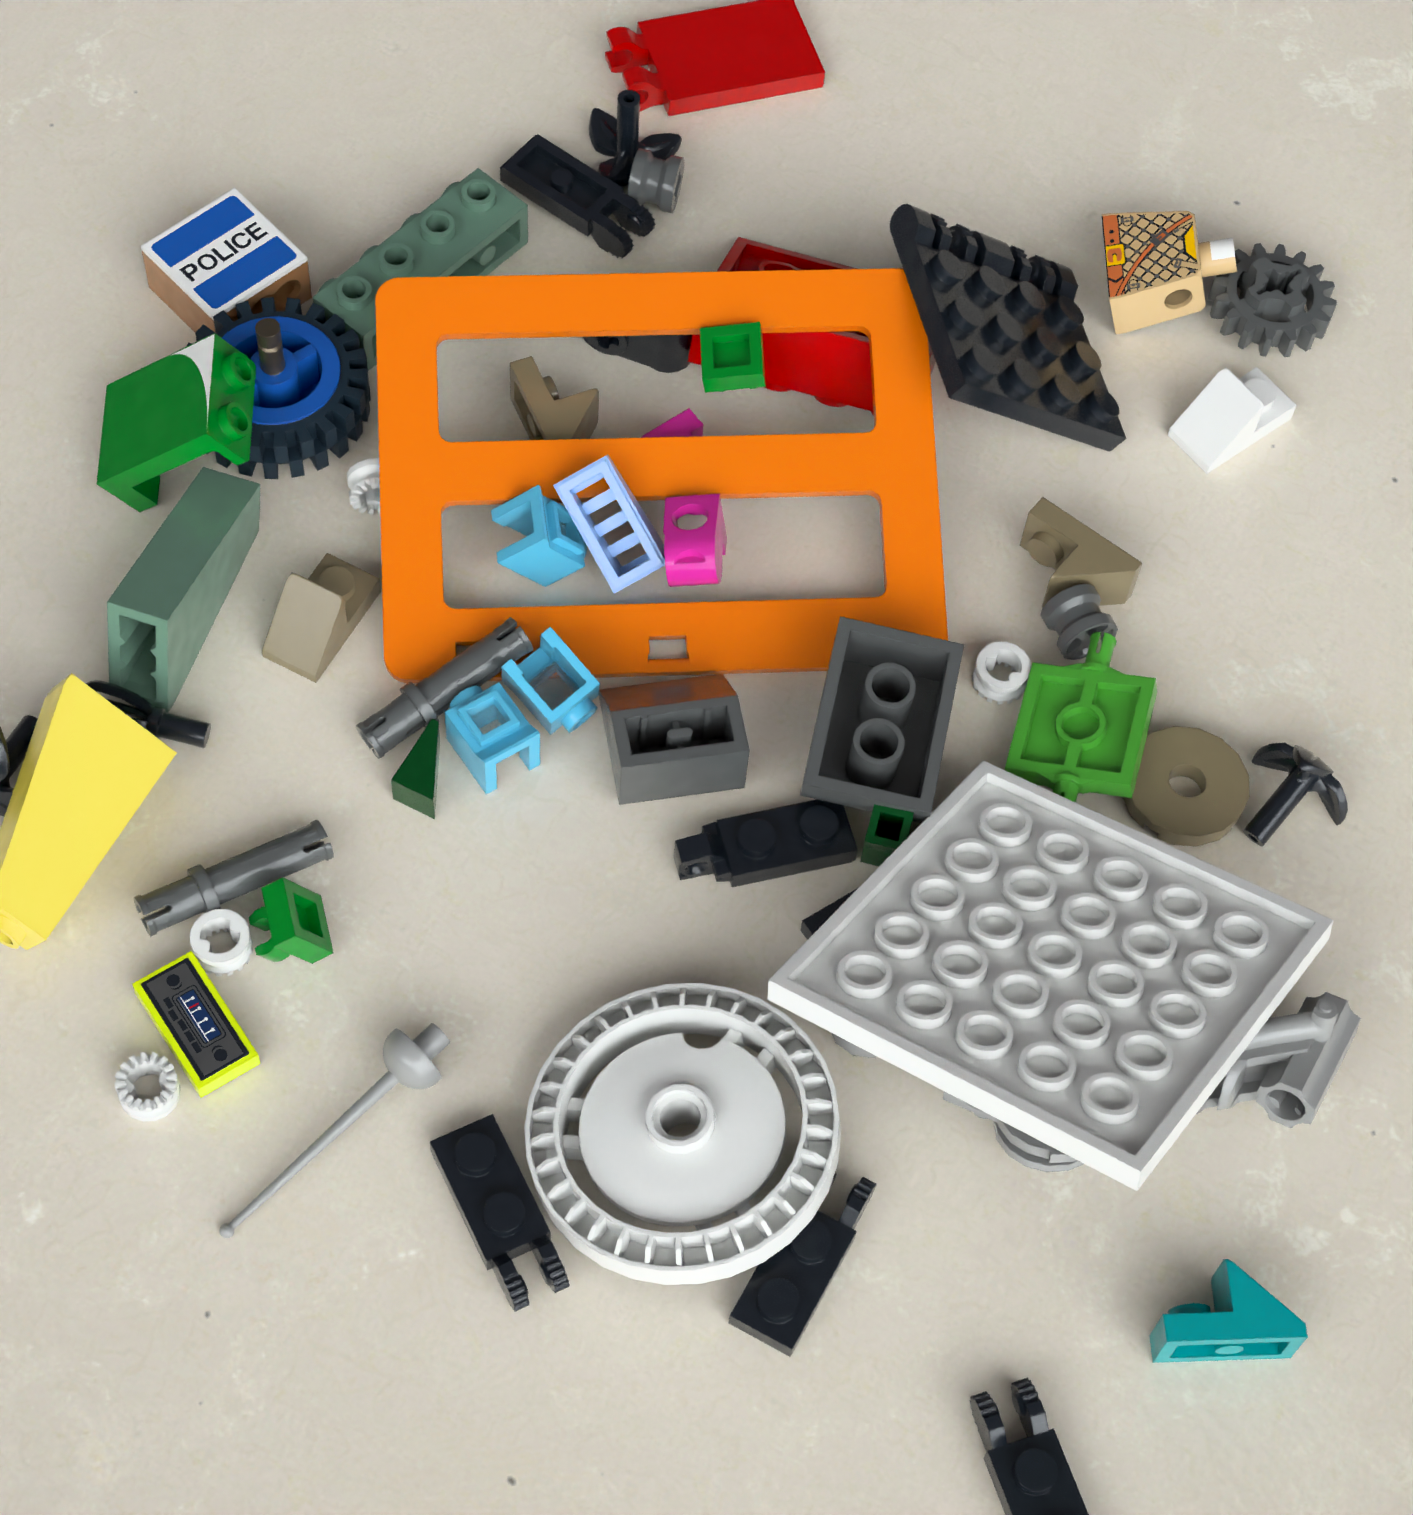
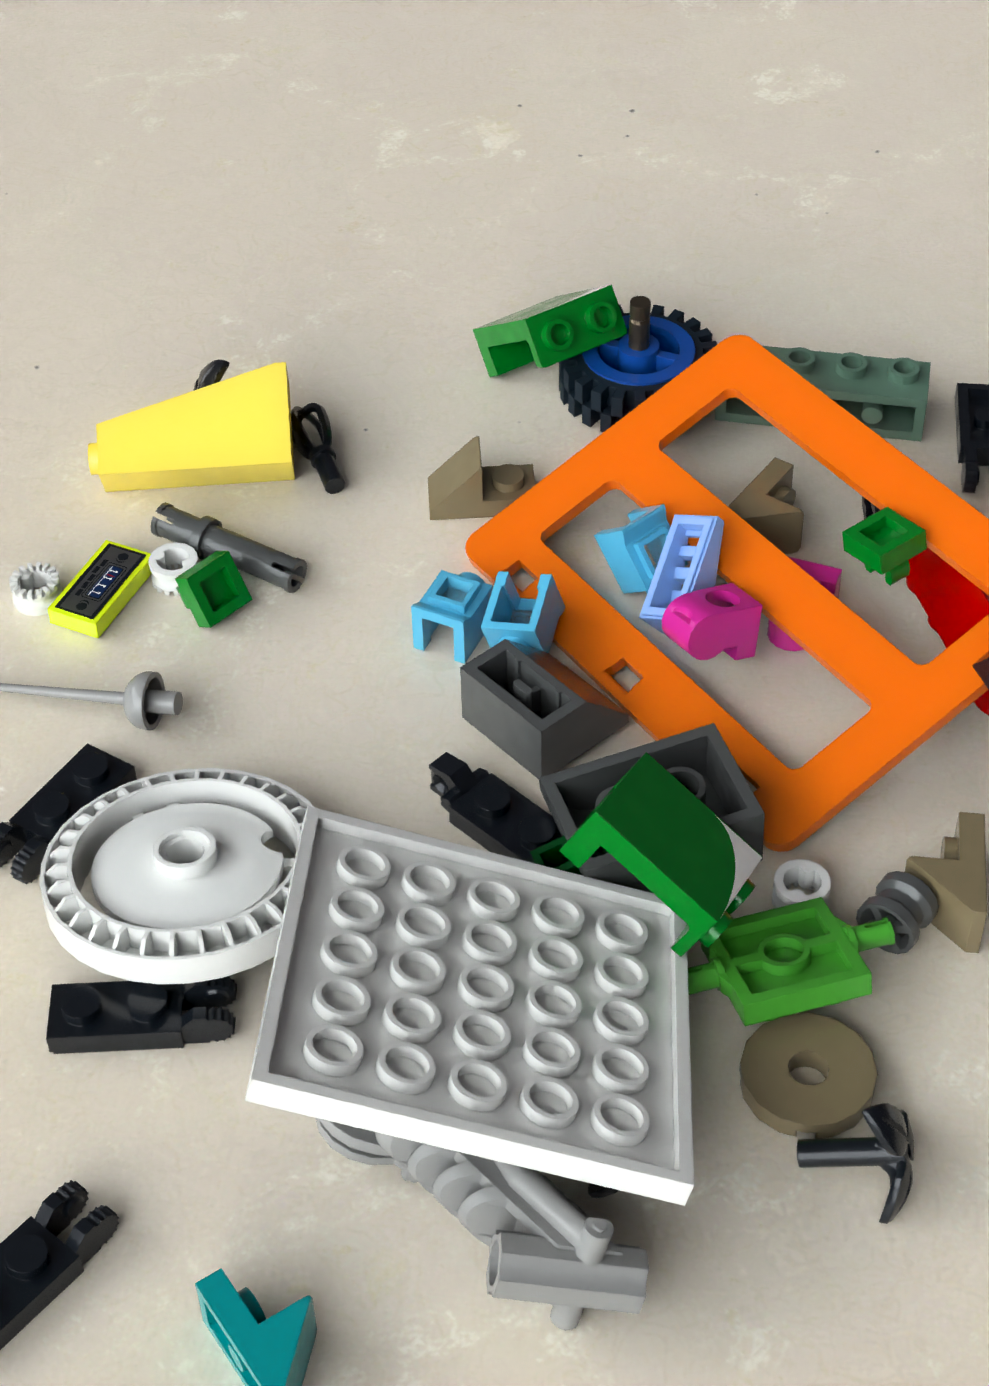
camera: 65 degrees right, 15 degrees down
(179, 586) = (430, 403): sand green slope -> none
(223, 259) = (719, 292): piece -> none
(418, 775) = (393, 596): dark green piece -> none
(434, 693) = (426, 563): dark grey pin -> none
(970, 731) = (671, 848): none -> green panel

